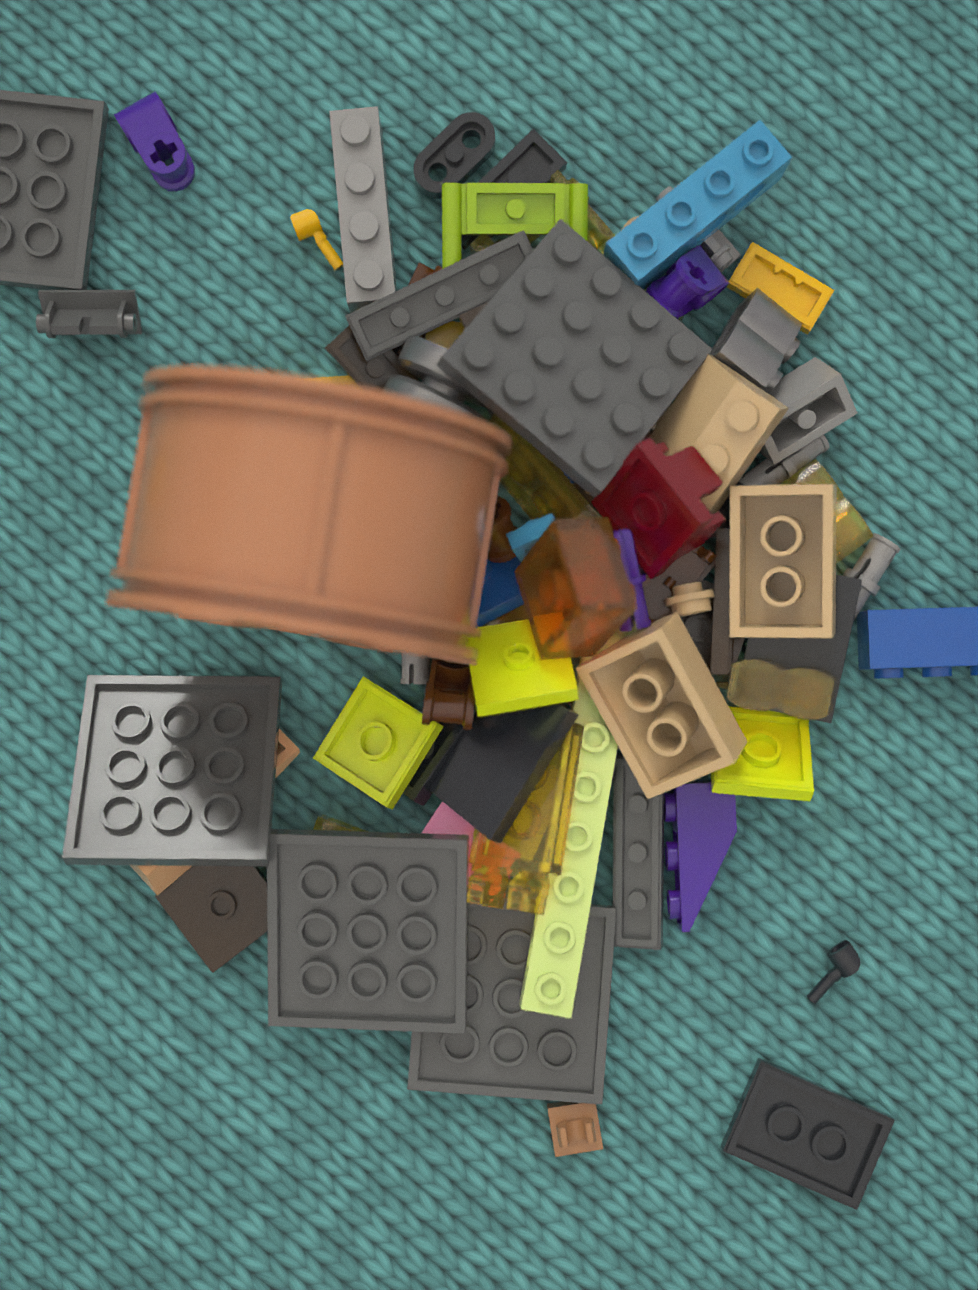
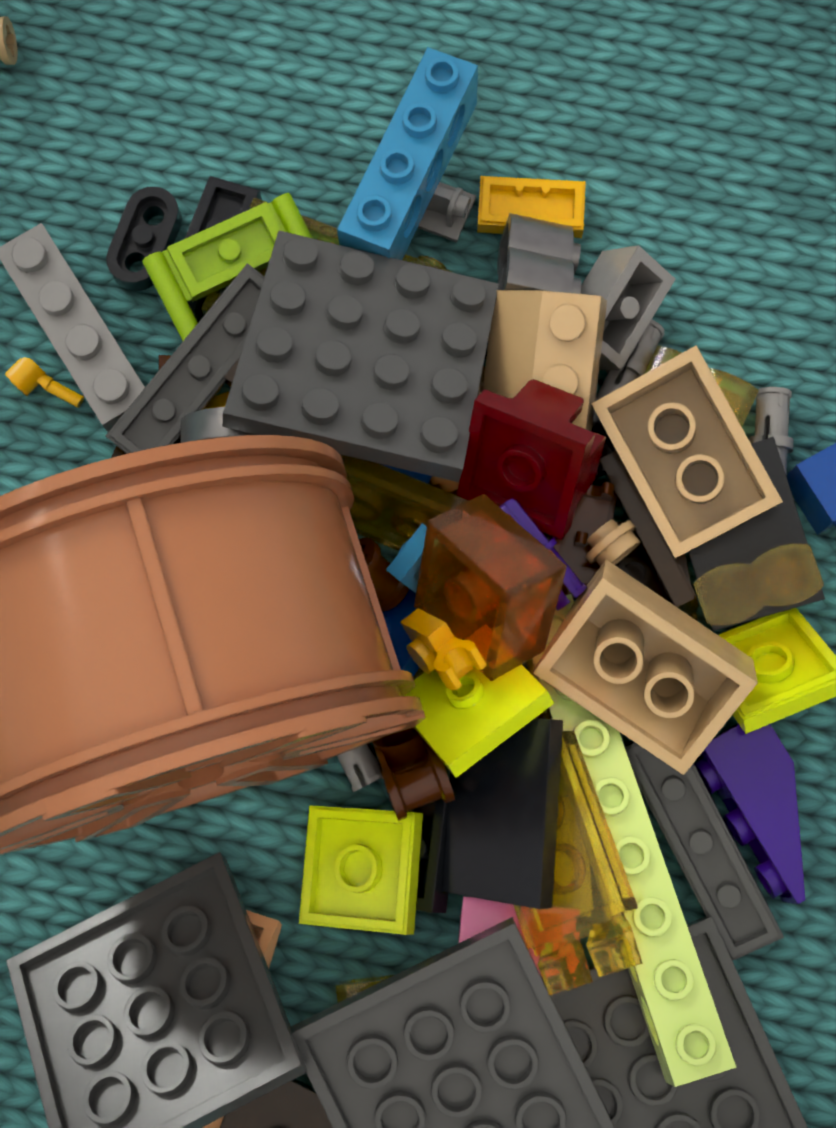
camera: 25 degrees left, 10 degrees down
(514, 616) = (439, 650): none -> yellow plate
(688, 283) = (441, 237): dark purple piece -> none

